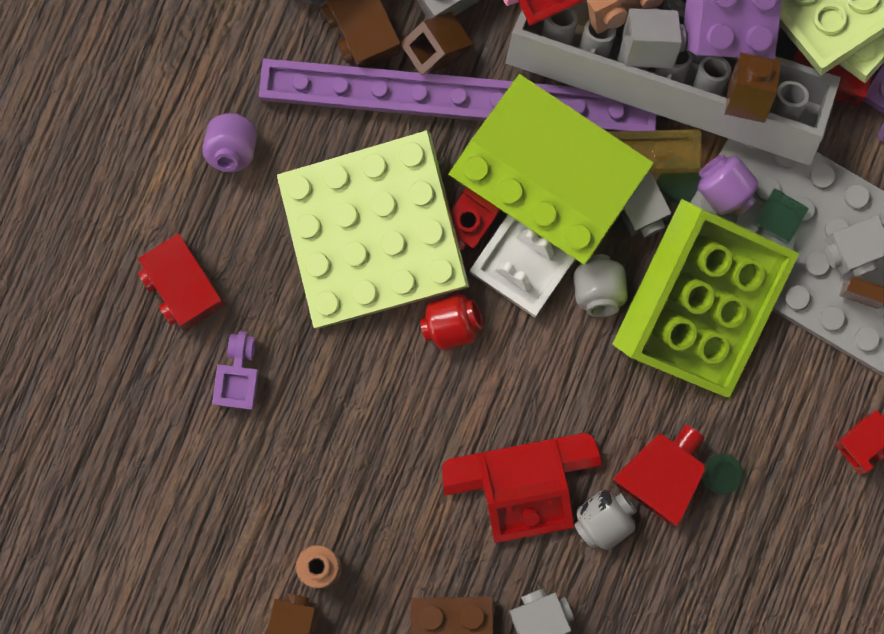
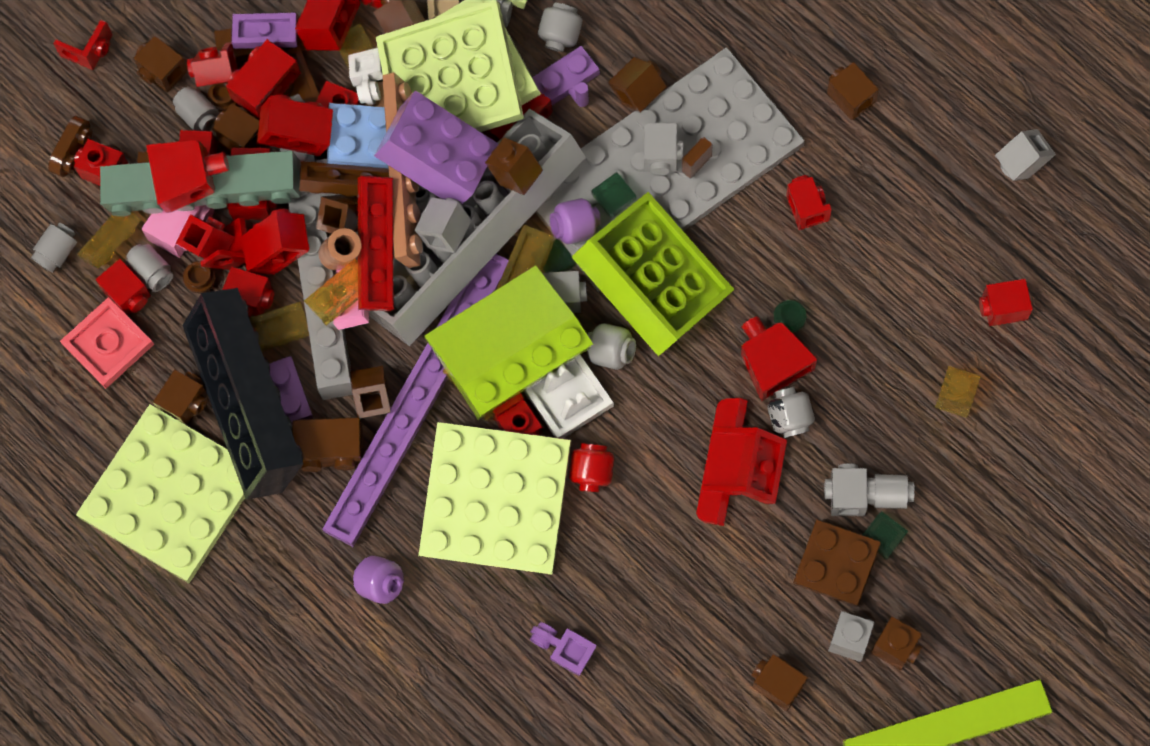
camera: 60 degrees left, 10 degrees down
(180, 283) = (472, 663): red brick -> none
(328, 576) = (741, 647): nougat brick -> none

